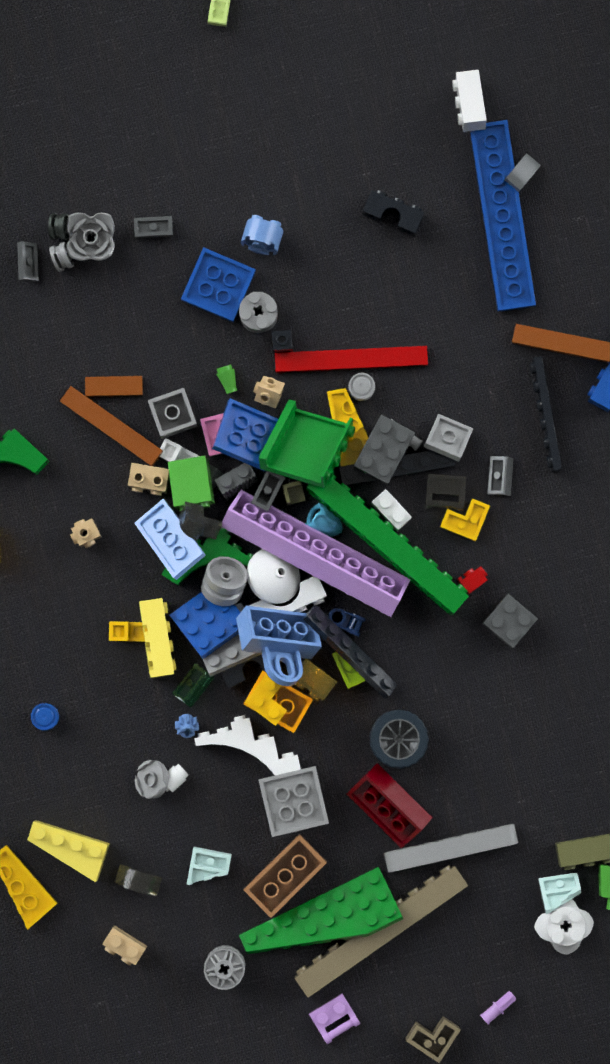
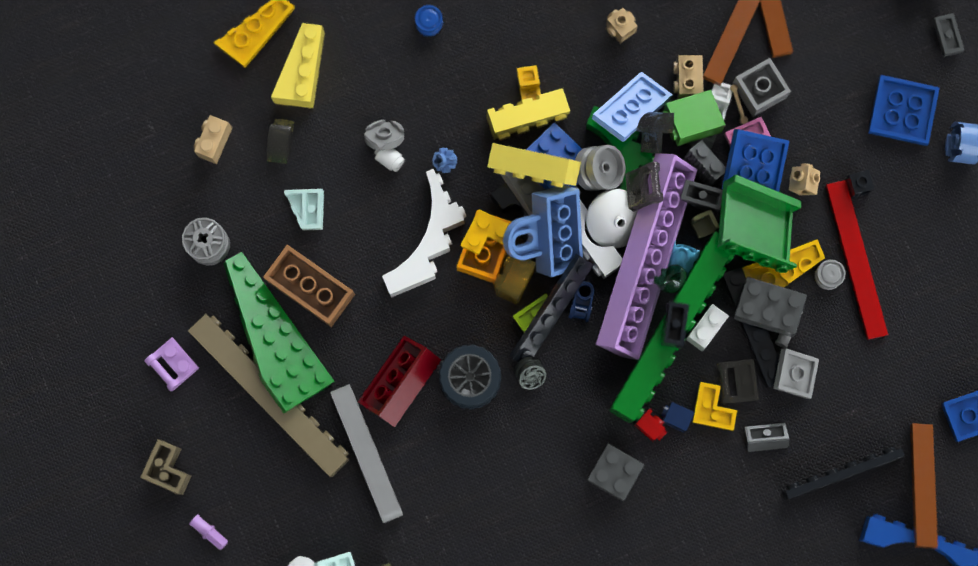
camera: 80 degrees right, 5 degrees down
(193, 685) = (478, 159): clear green slope -> none
(199, 435) = (743, 119): none -> tan hinge
(214, 643) = (533, 164): none -> light yellow wedge
(227, 378) = (809, 136): bright green cone -> none
(251, 549) = (637, 186): none -> clear smoke plate
(259, 323) = (894, 149): light grey brick -> none
(293, 801) = (386, 278): light grey plate -> none
(342, 535) = (671, 279): none -> clear green hair
(389, 542) = (675, 324): none -> black brick
(405, 683) = (529, 372): none -> pearl dark grey wheel
(468, 554) = (677, 416): none -> dark blue brick

